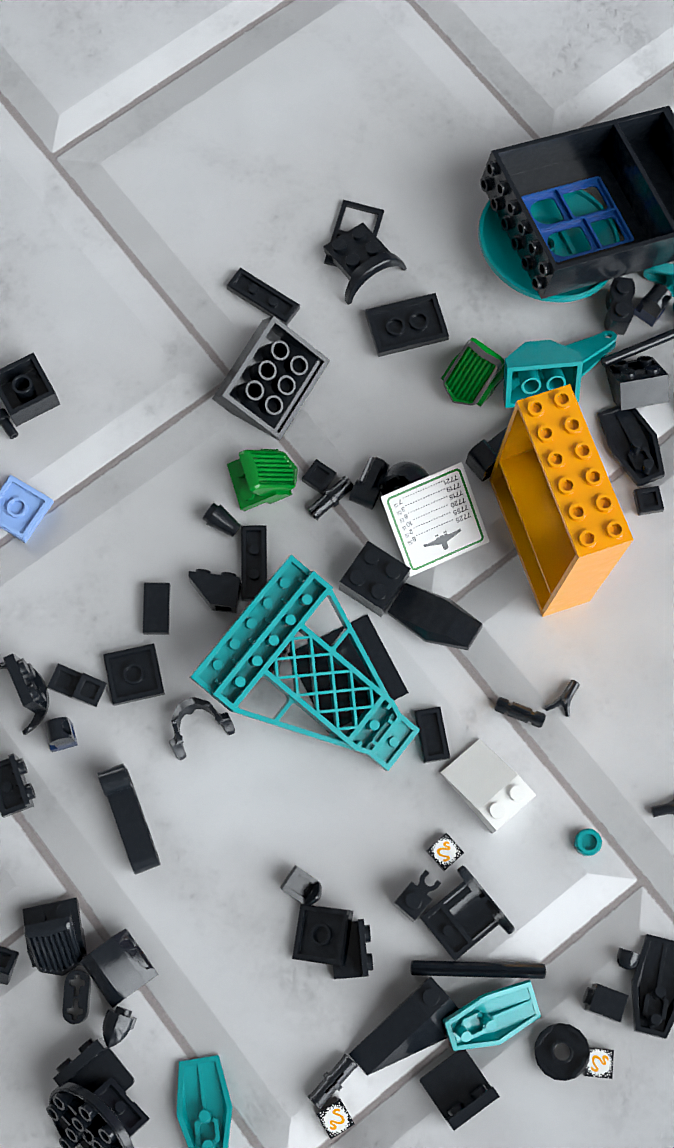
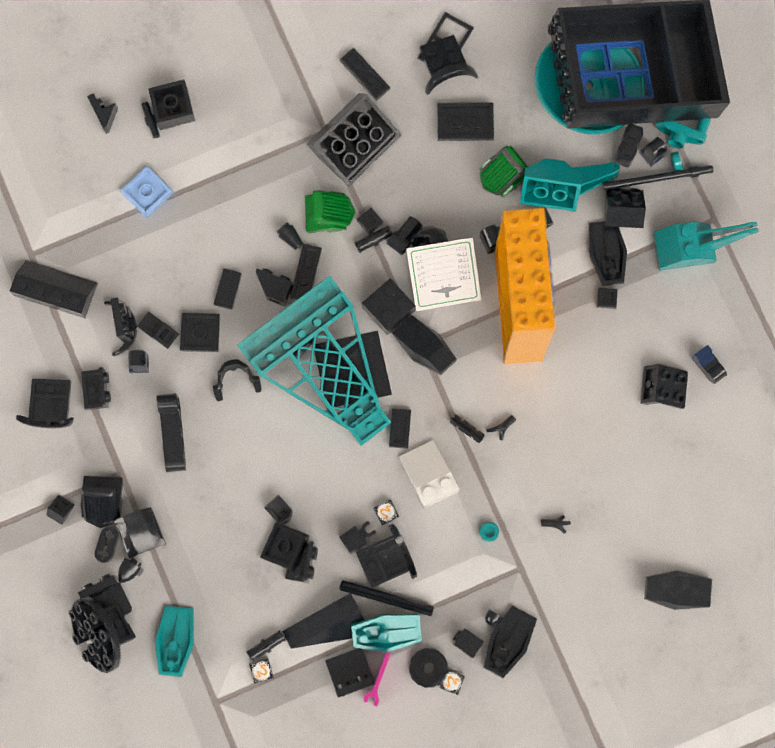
camera: 20 degrees right, 5 degrees up
(500, 1105) = (374, 692): none -> dark pink flag

